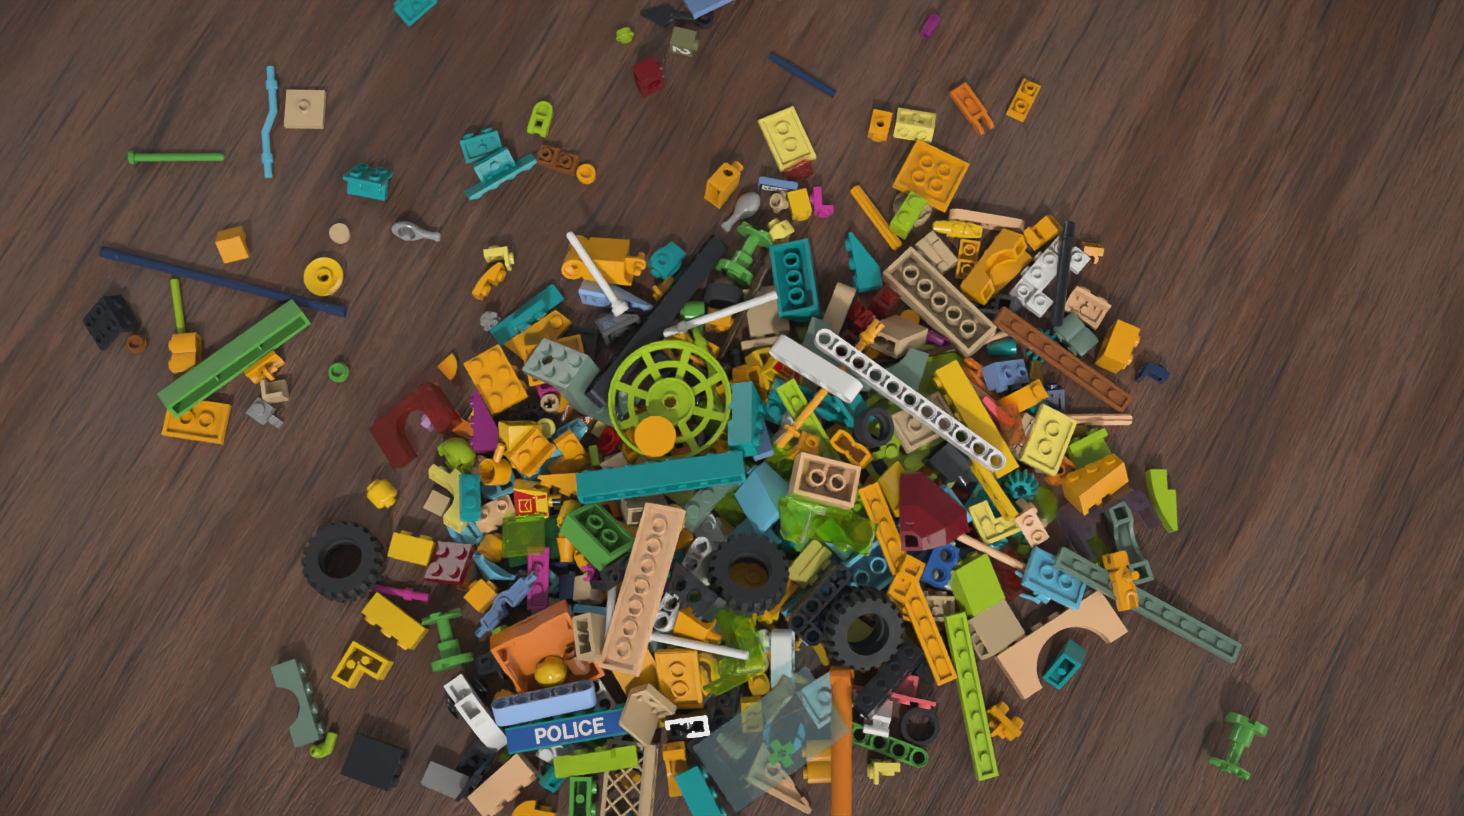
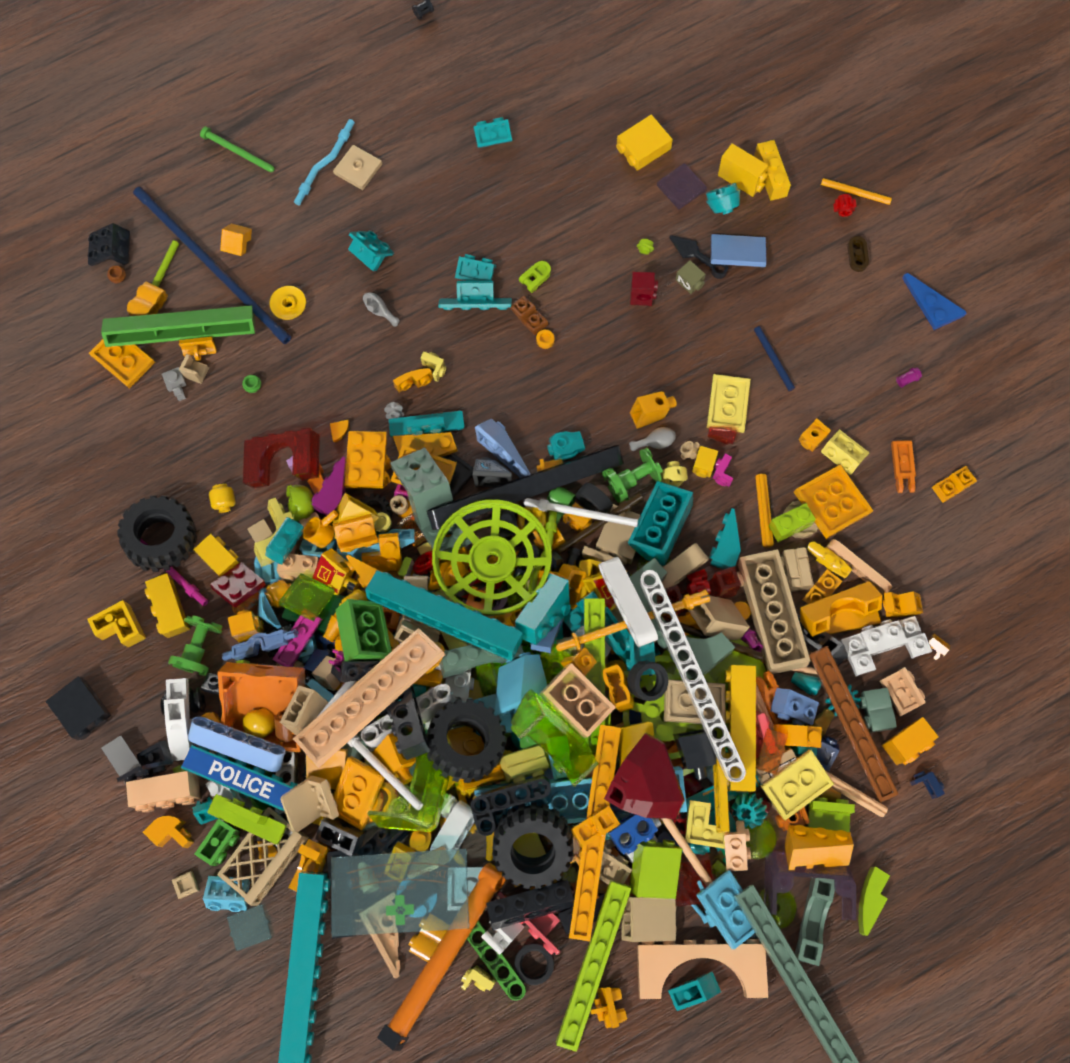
camera: 35 degrees right, 5 degrees down
(307, 725) = (47, 647): sand green arch -> none
(325, 748) = (48, 673): lime arm -> none
(339, 233) = (322, 277): tan tile -> none
(610, 258) = (512, 414): light orange piece -> none
(618, 306) = (500, 456): white piece -> none
(655, 436) = (460, 578): light orange tile -> none
(776, 185) = (695, 435): medium blue tile -> none
(1063, 273) = (919, 623): black axle -> none
(1122, 580) = (787, 948): light orange piece -> none

